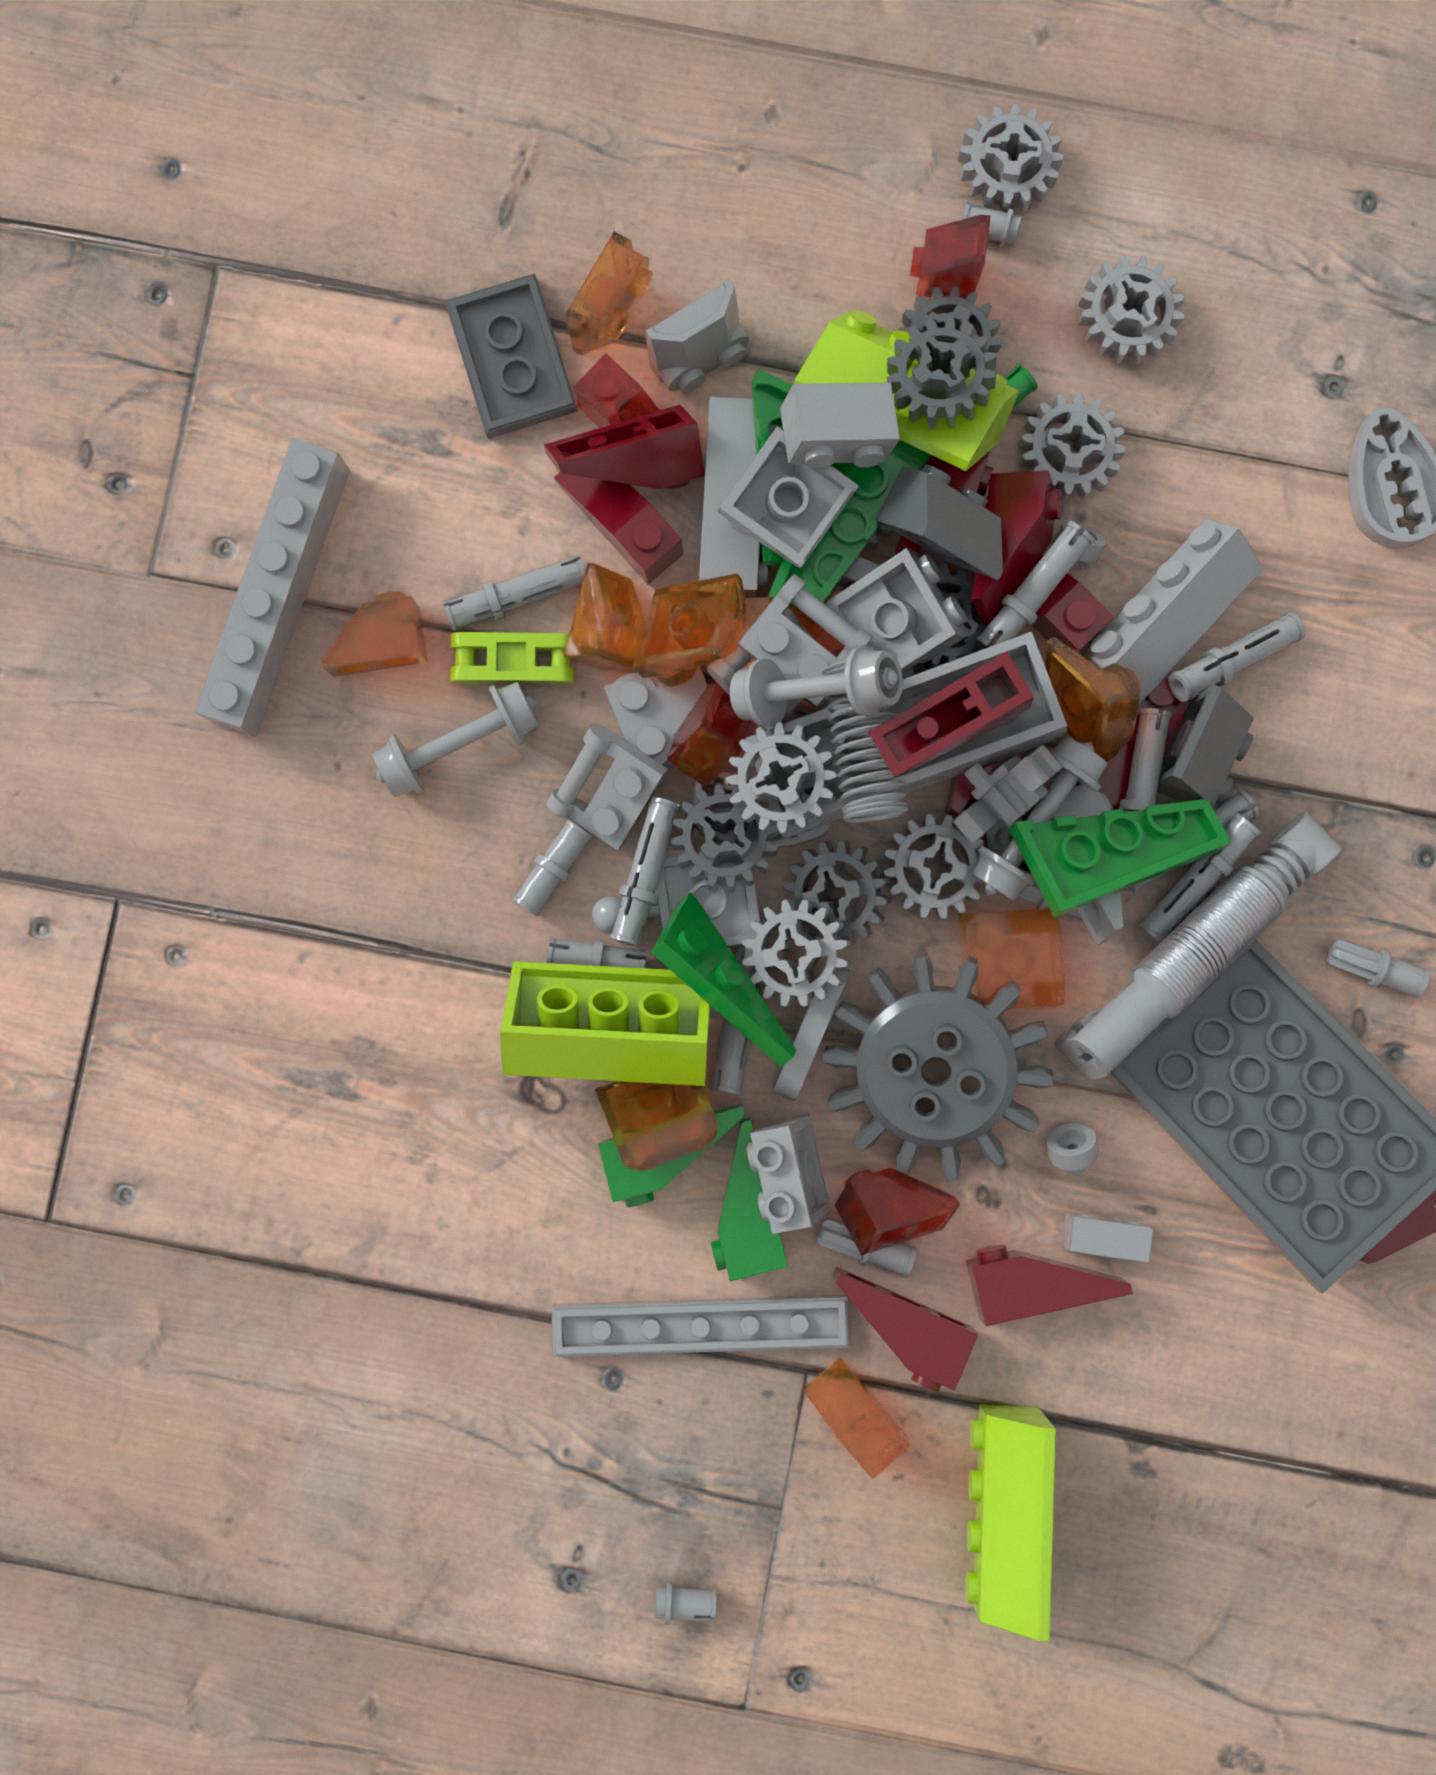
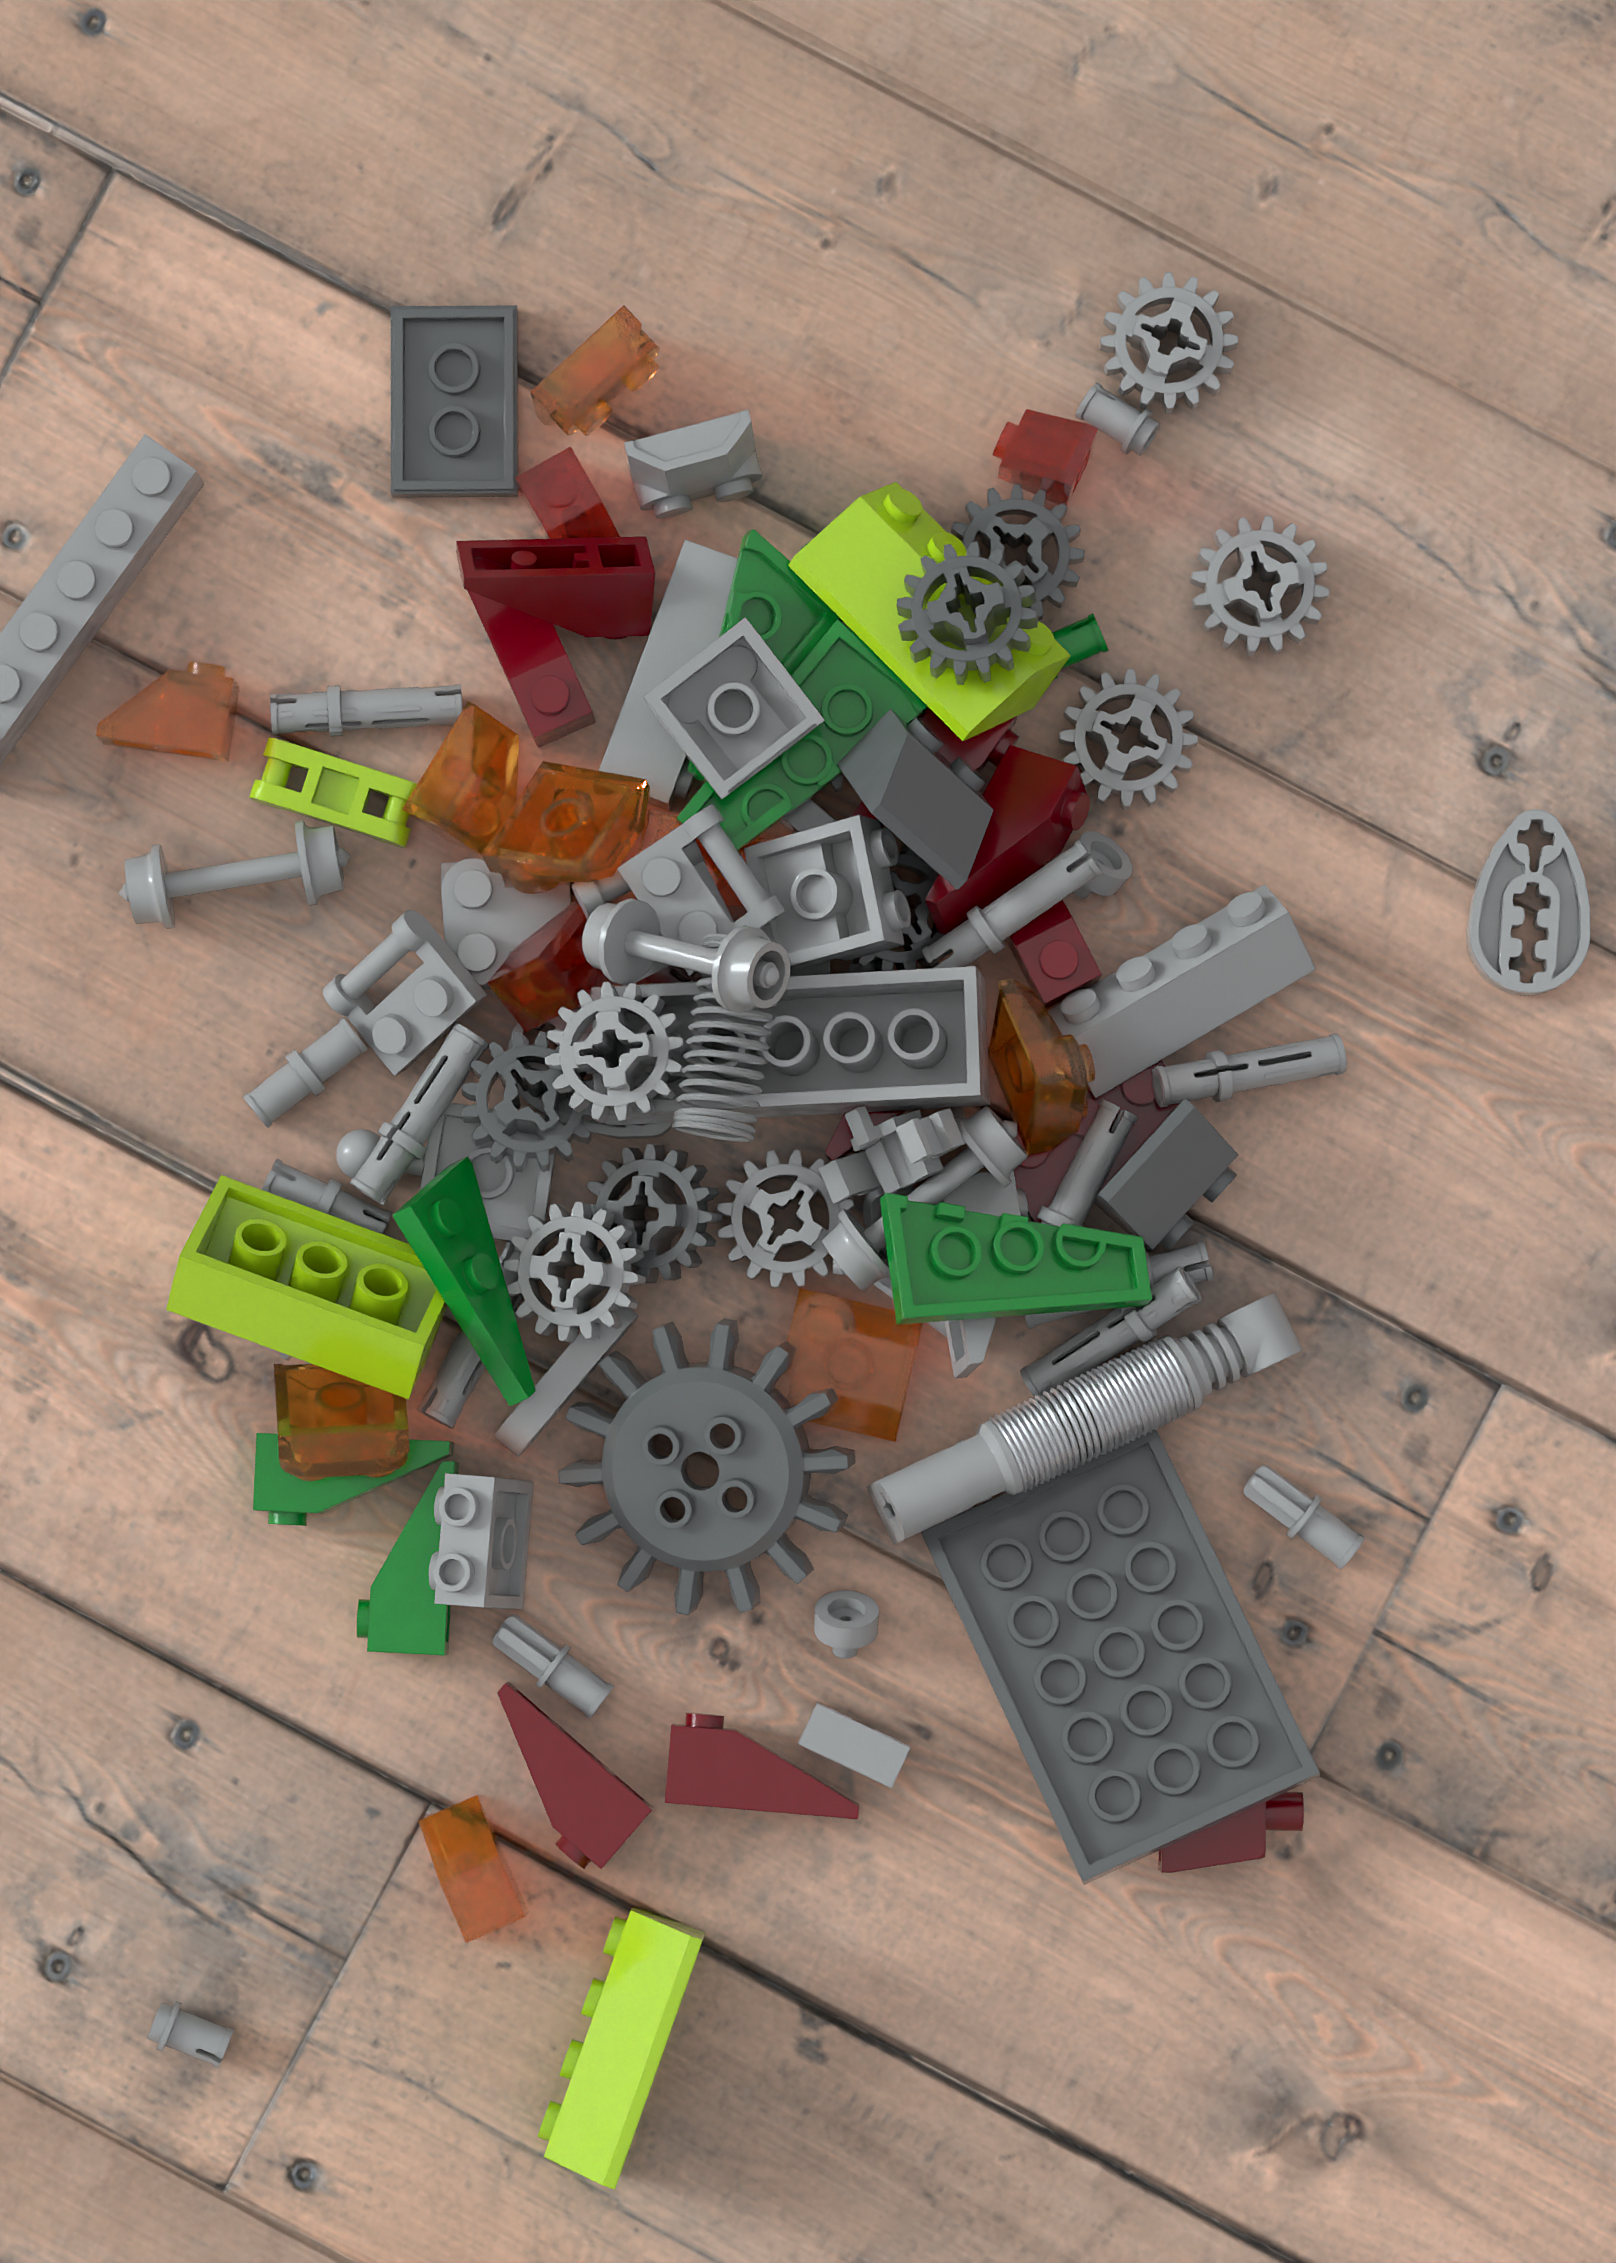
camera: 15 degrees right, 0 degrees up
(700, 1325) = (314, 1701): light grey tile -> none
(839, 423) = (820, 641): light grey brick -> none
(891, 1209) = (596, 1626): clear red slope -> none
(953, 715) = (836, 1043): dark red slope -> none

